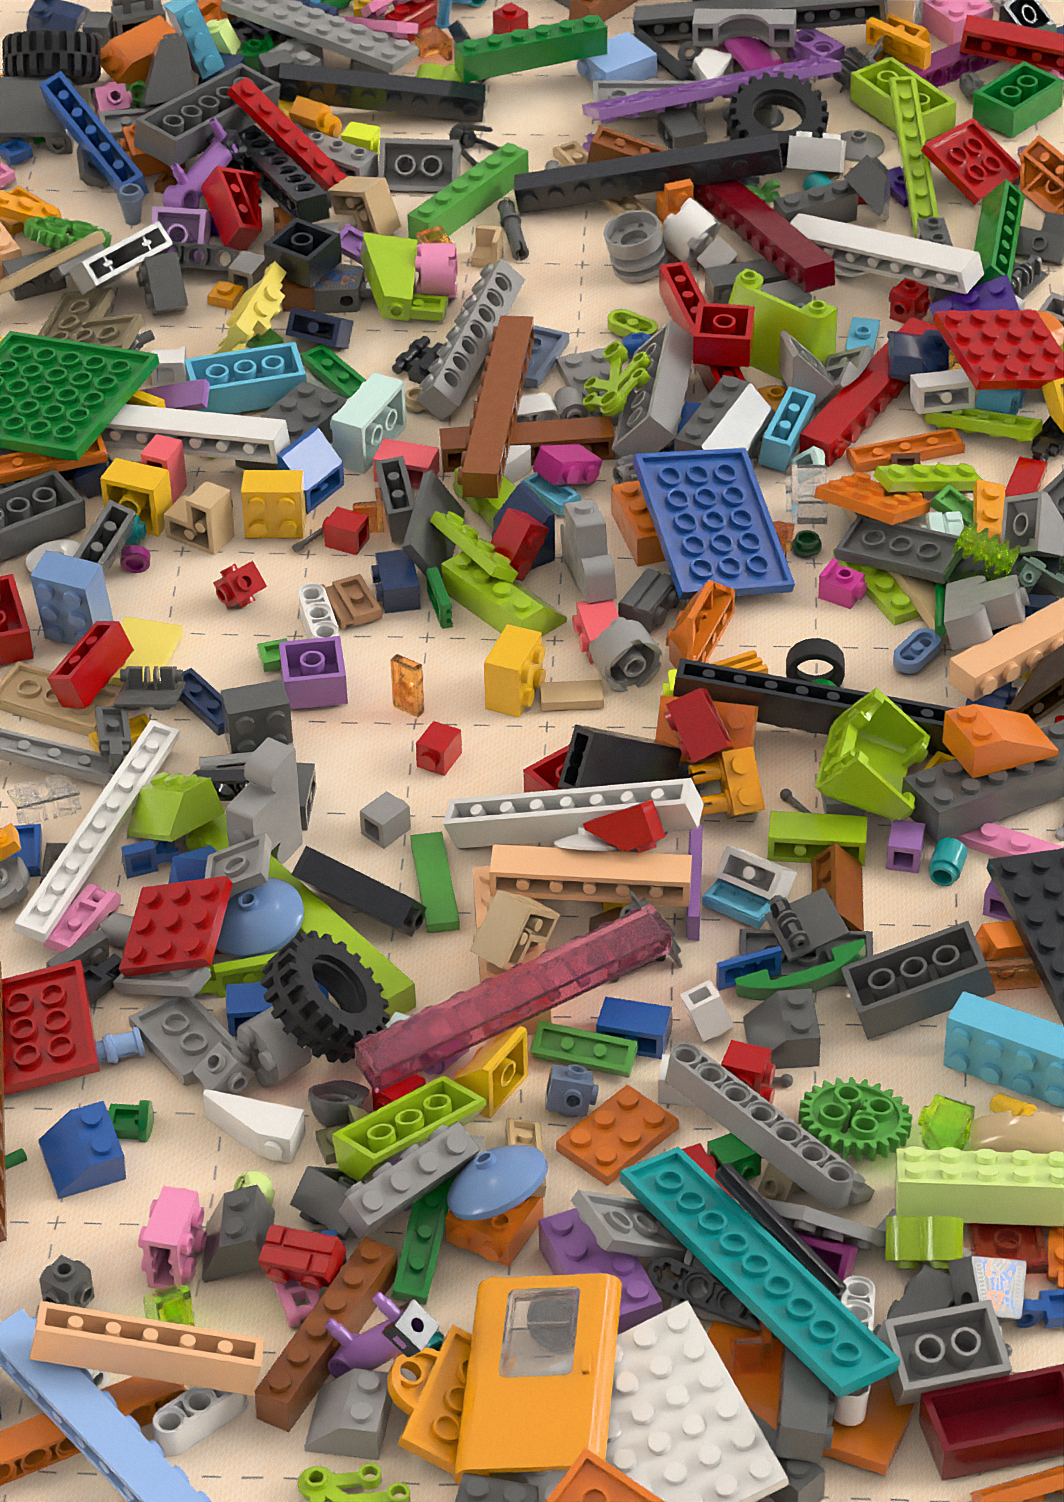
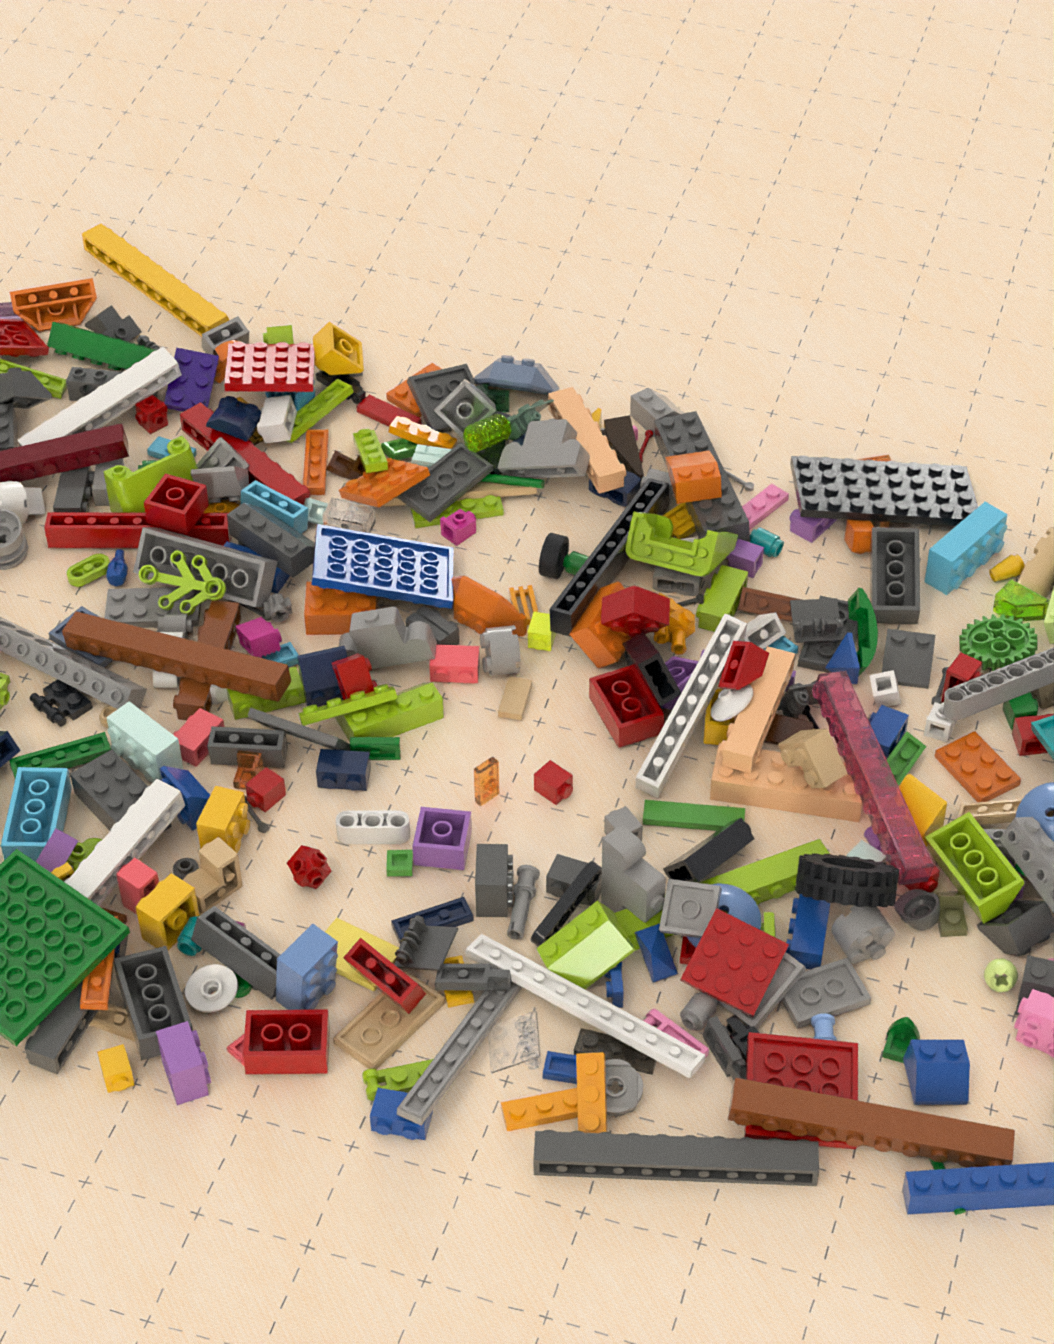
camera: 75 degrees left, 5 degrees up
(225, 1069) = (877, 968): light grey brick -> none
(260, 1126) = (932, 961): white slope -> none
(352, 601) = (352, 799): medium nougat plate -> none
(514, 670) = (494, 716): yellow brick -> none
(570, 1090) = (944, 776): sand blue brick -> none
(806, 543) = (401, 531): dark green plate -> none
(916, 651) = (544, 506): medium blue plate -> none

